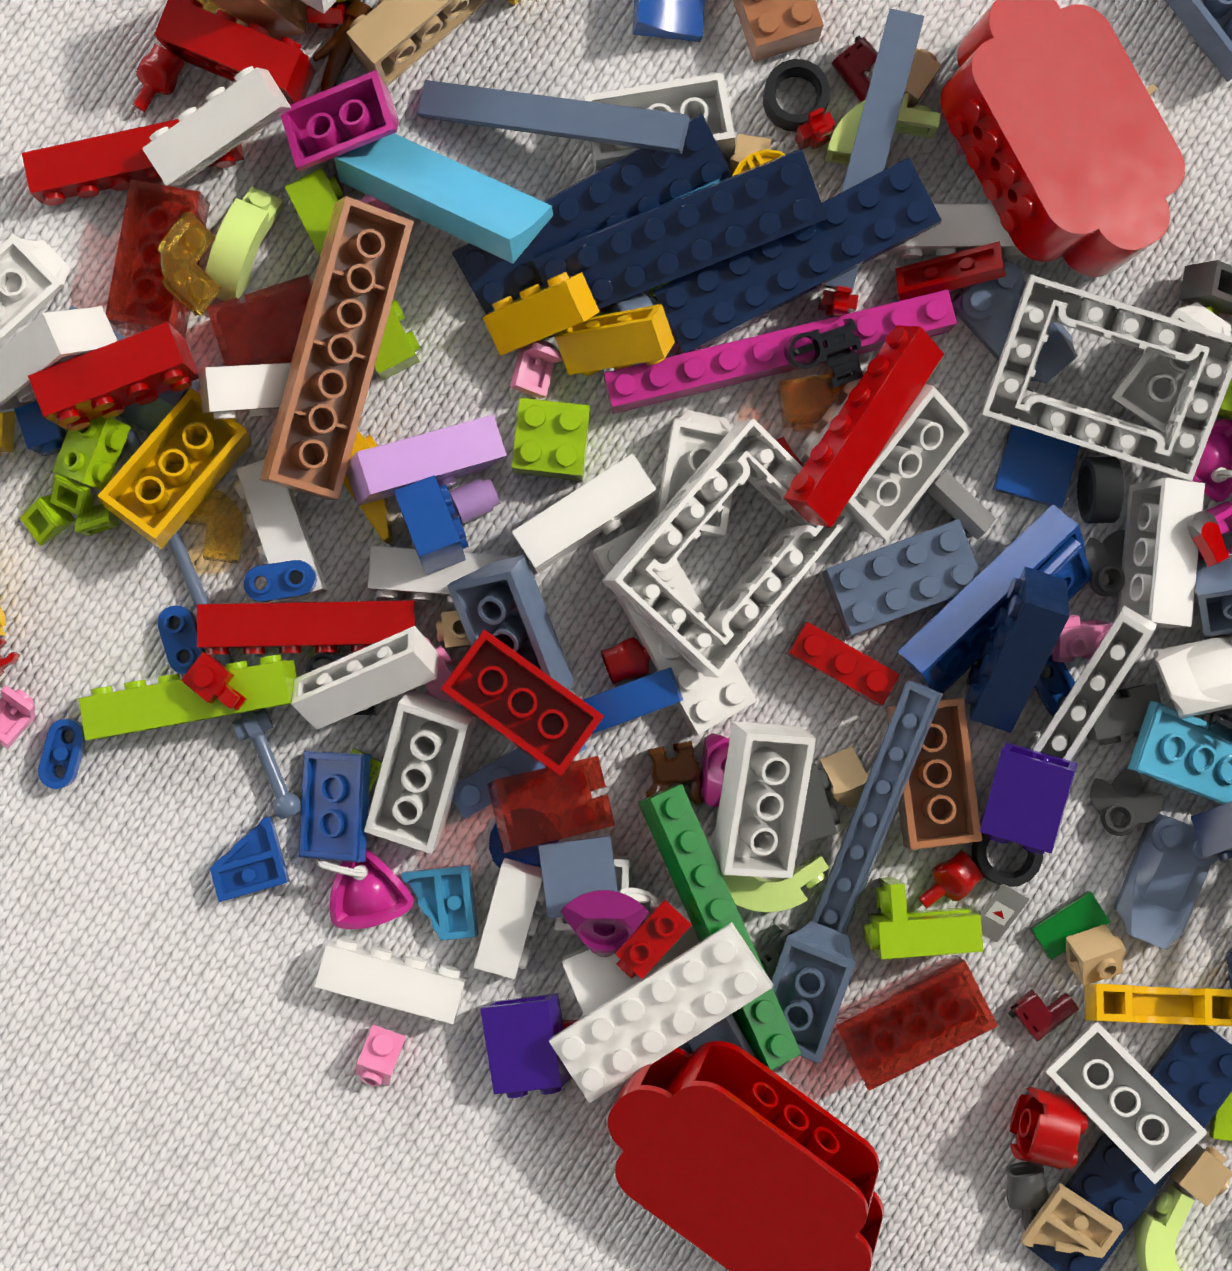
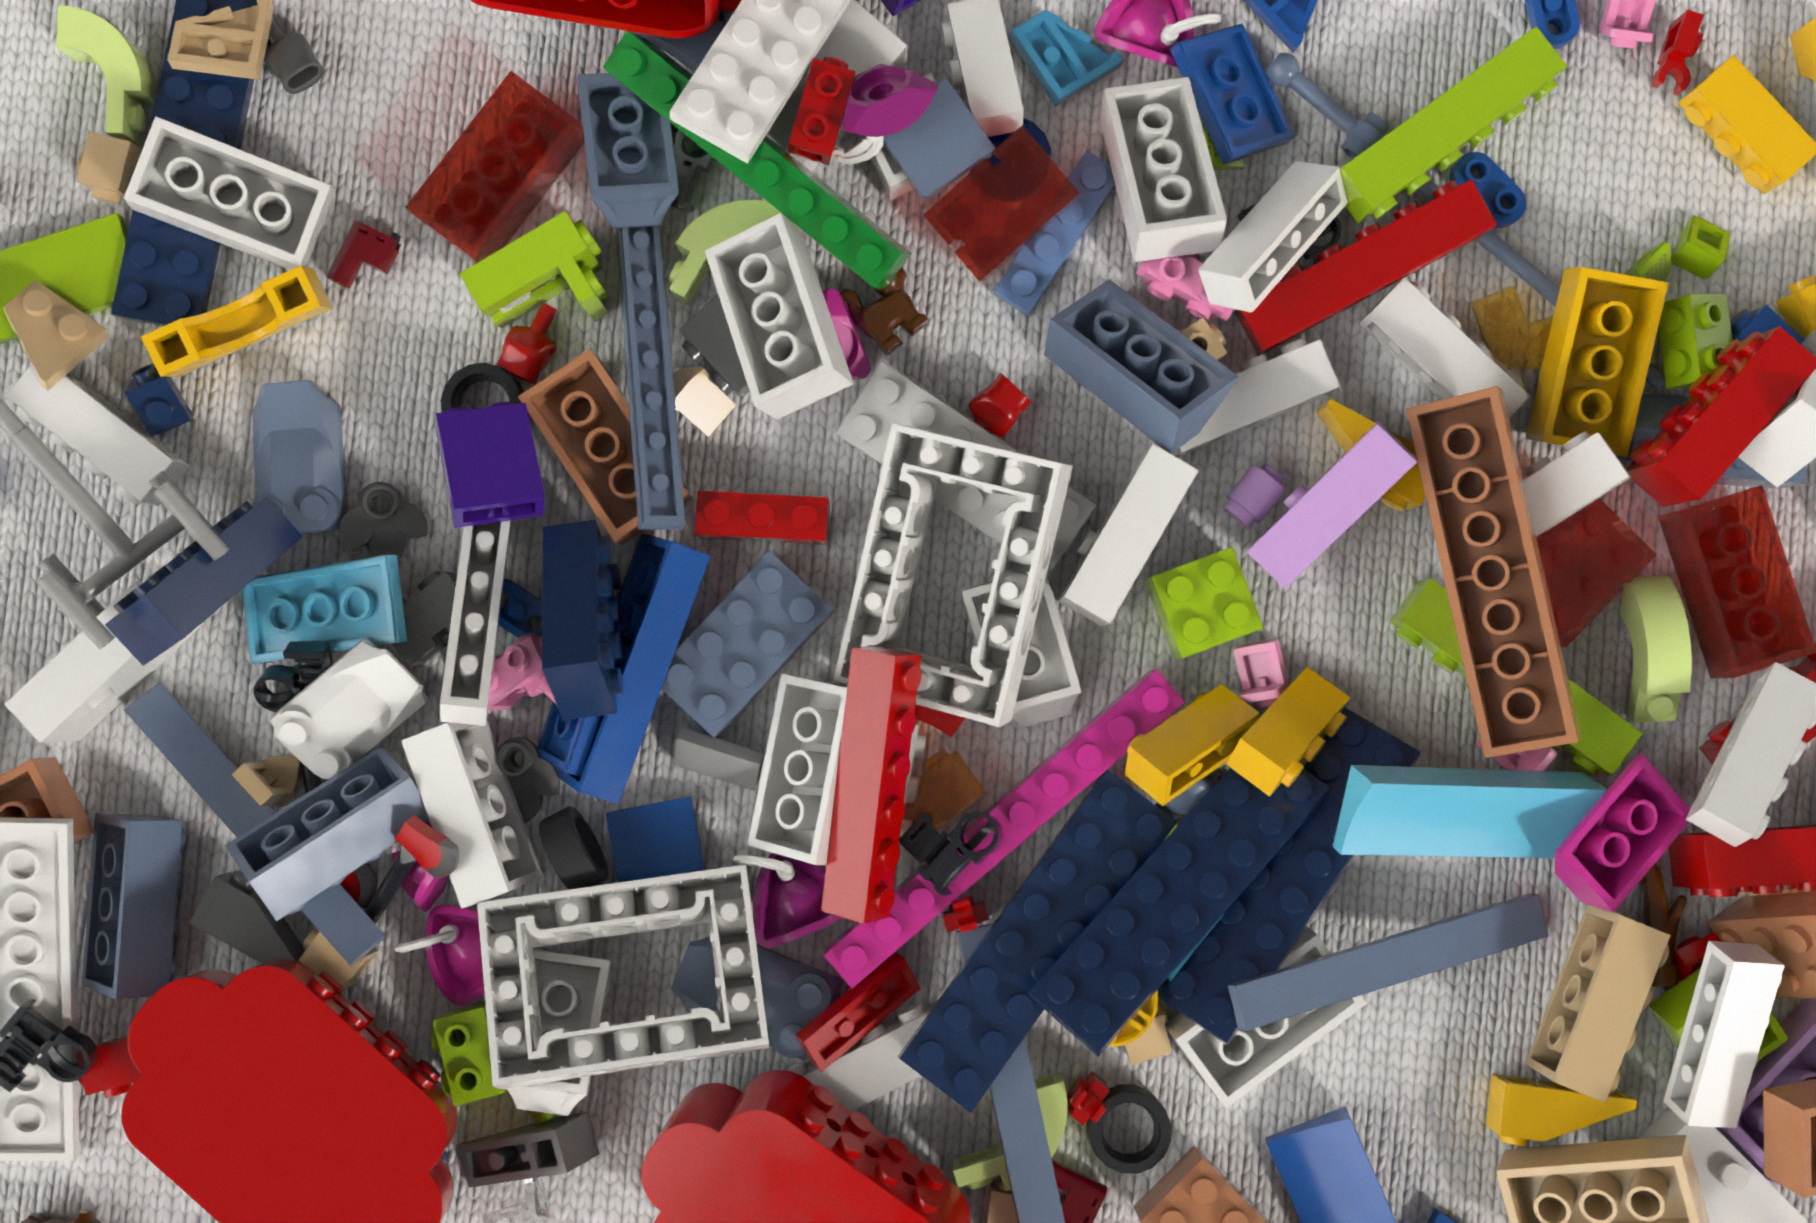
camera: 155 degrees right, 0 degrees up
(71, 495) = (1691, 279): lime slope -> none
(178, 260) = (1714, 580): clear yellow plate -> none
(211, 680) = (1438, 148): red plate -> none
(279, 581) = (1421, 297): blue plate -> none
(429, 520) = (1290, 433): blue brick -> none
(521, 703) = (1093, 285): red brick -> none
(636, 698) = (979, 355): blue slope -> none
(964, 376) = (786, 899): none -> magenta hat
(1001, 912) = (460, 336): light grey sticker -> none
(1047, 1129) = (299, 128): red brick -> none
(1071, 919) = (378, 362): green tile -> none
(1095, 954) = (335, 340): tan brick -> none

